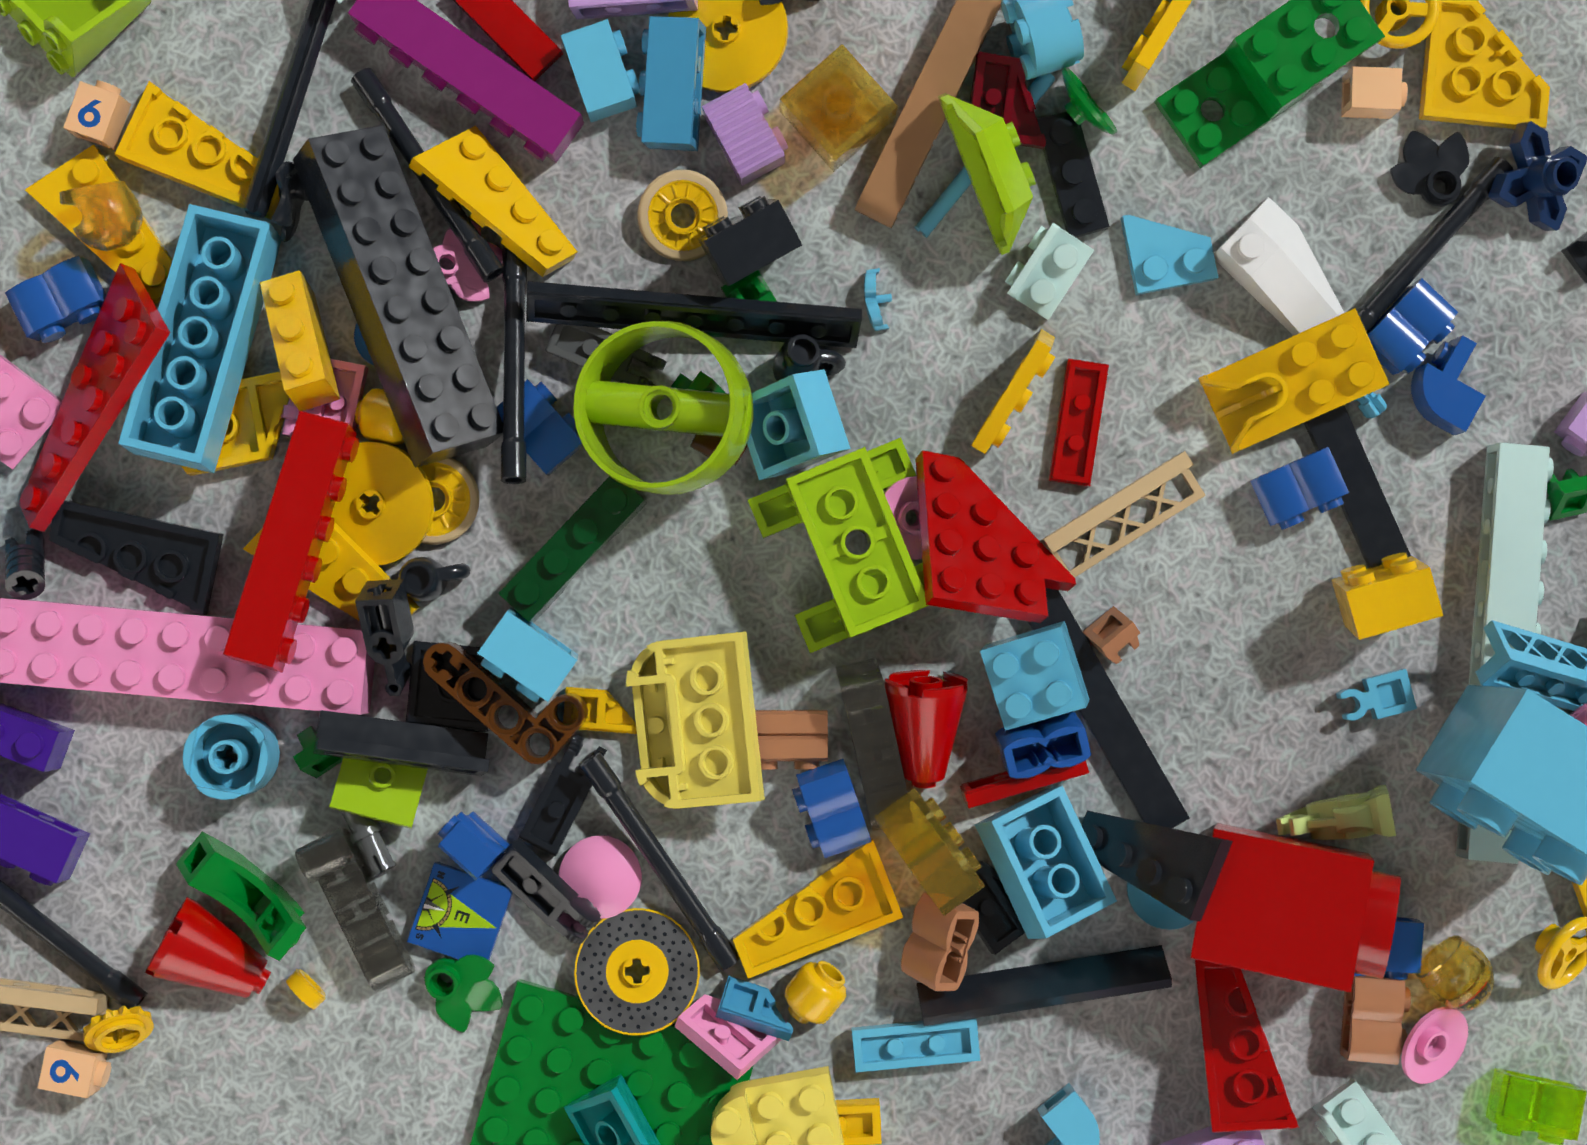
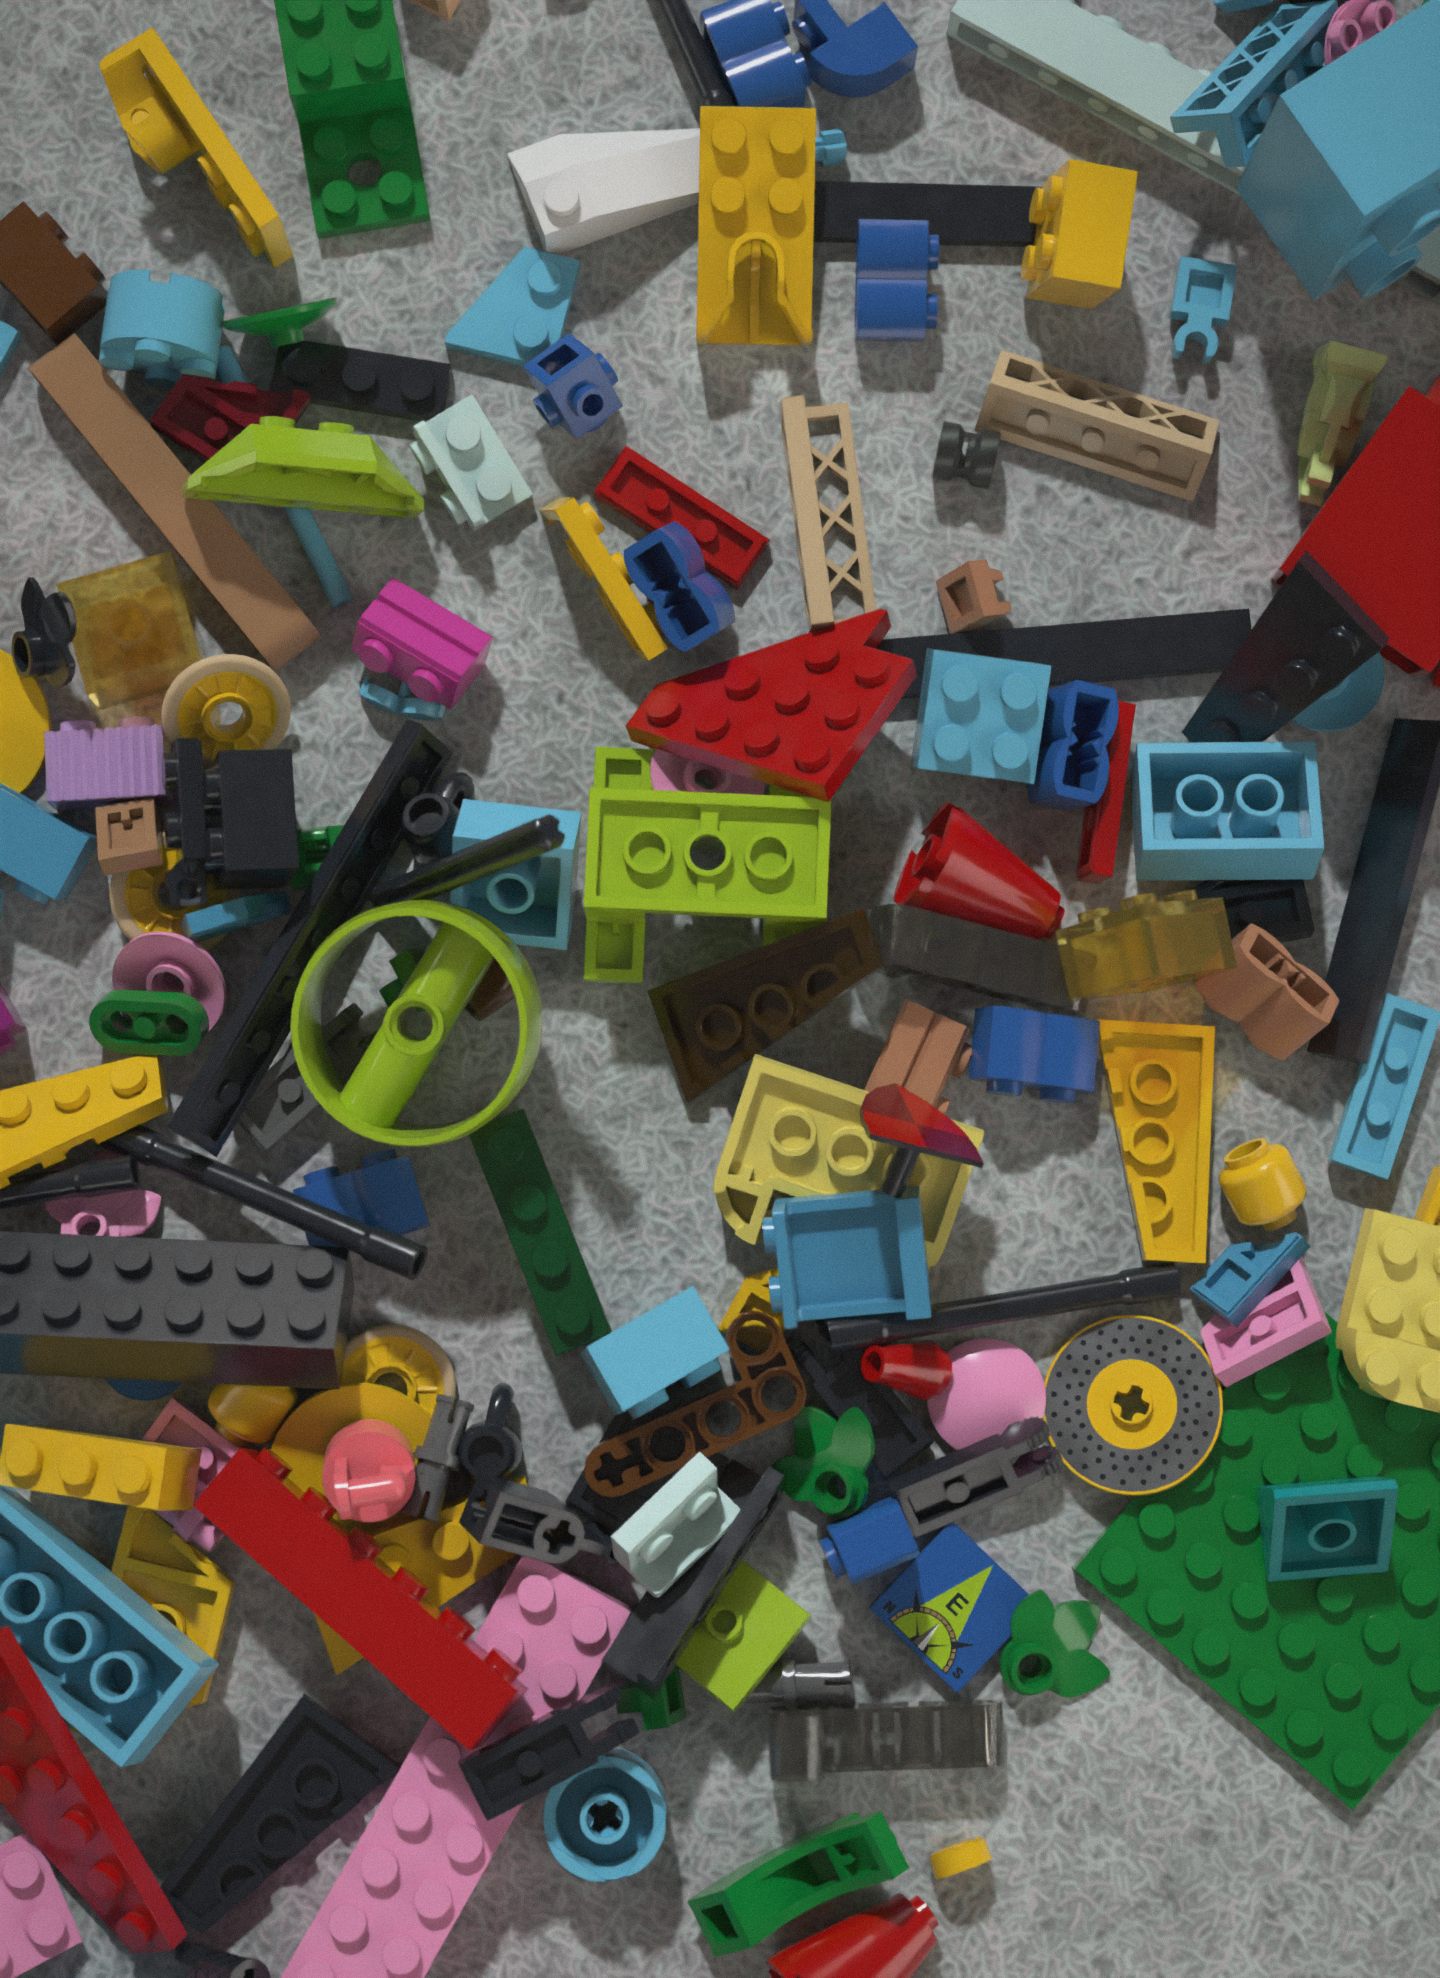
camera: 60 degrees left, 5 degrees down
(246, 701) = (543, 1753): none -> black hinge
(372, 510) = (368, 1471): none -> coral piece
(401, 549) = (438, 1457): none -> dark grey pin
(424, 718) = (675, 1527): none -> light aqua bracket
(516, 790) = (824, 1453): none -> green plate
(592, 242) = (153, 1023): none -> green plate
(595, 821) = (911, 1368): none -> red cone
(622, 239) = (153, 956): none -> bright pink dish
(645, 749) = (848, 1256): none -> dark azure panel
(685, 260) = (234, 915): none -> dark azure tile
(703, 168) = (129, 836): none -> medium nougat bracket
(724, 201) = (186, 826): none -> black hinge
(740, 754) = (911, 1128): none -> shield
(775, 393) = (472, 863): none -> black axle
(781, 613) = (751, 1001): none -> dark brown wing
(807, 54) = (43, 646): none -> black plate
(831, 179) = (221, 680): none -> yellow wheel
(914, 294) = (420, 644): none -> dark pink brick
(1033, 435) = (685, 597): none -> blue brick
(1130, 313) = (573, 386): none -> blue brick
(1207, 597) = (979, 455): none -> pearl dark grey wheel
(1261, 665) = (1096, 429): none -> tan fence

